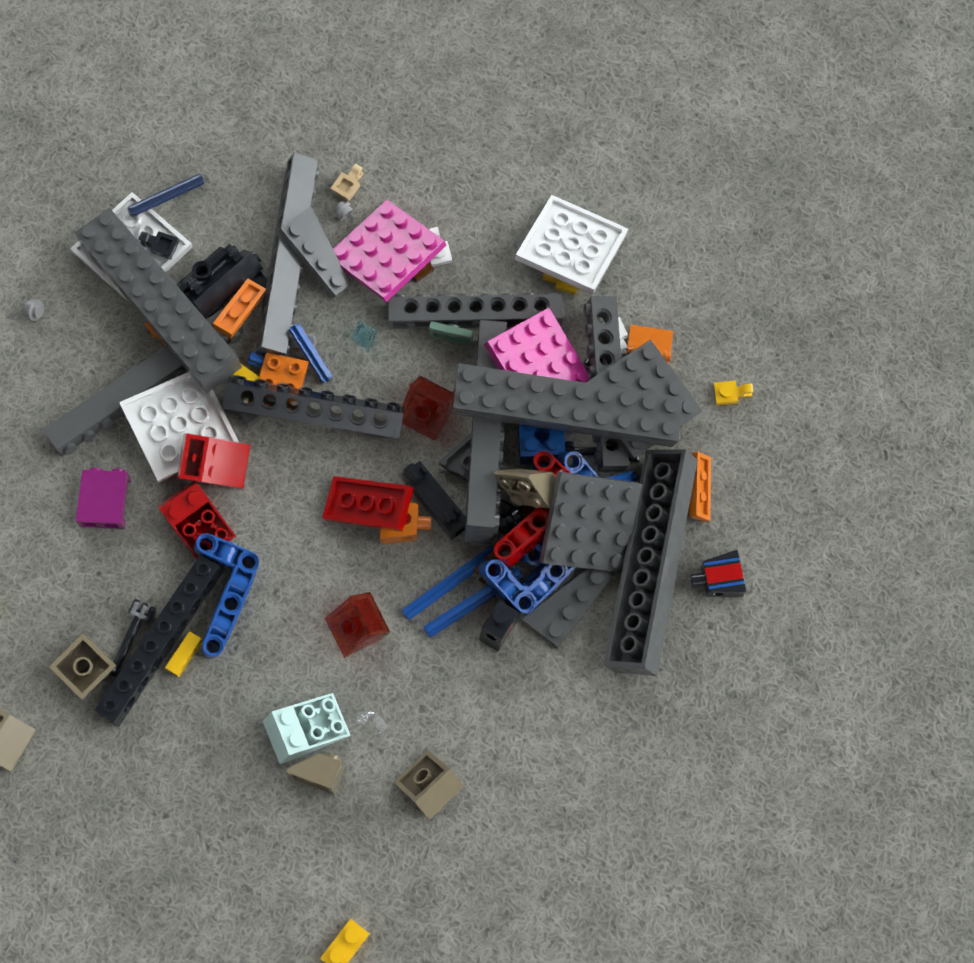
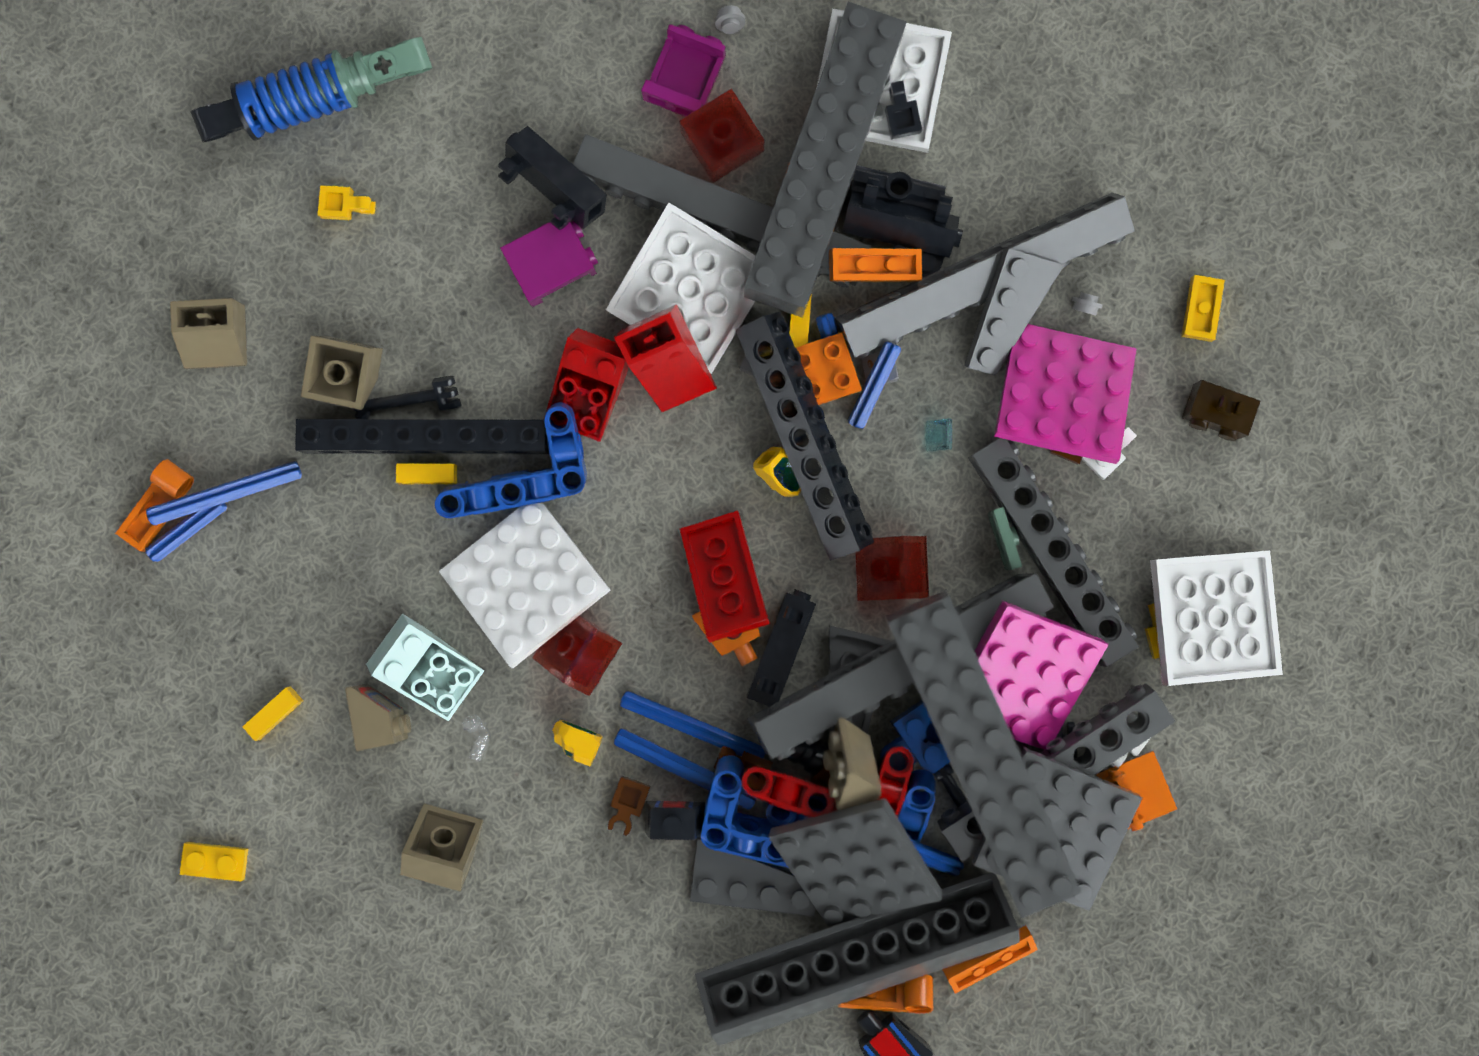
camera: 65 degrees right, 15 degrees up
(46, 353) = (684, 71): none -> magenta panel
(55, 464) = (554, 177): none -> black brick
(86, 842) = (168, 484): none -> orange plate
(100, 352) = (722, 135): none -> clear red brick
(109, 791) = (223, 493): none -> axle
(114, 834) = (182, 532): none -> axle
(165, 195) = (971, 75): dark blue axle -> none
(272, 846) = (272, 713): none -> yellow piece
(292, 631) = (524, 581): none -> white plate
(325, 438) = (777, 472): none -> yellow rock
(347, 185) = (1124, 286): tan plate -> none
(387, 151) = (1203, 308): none -> yellow plate
(414, 657) = (577, 741): none -> yellow rock
(452, 175) = (1220, 410): none -> dark brown brick
(471, 647) = (629, 800): none -> reddish brown plate
(693, 547) = (907, 997): none -> orange plate
(728, 393) = (1136, 925): yellow plate -> none

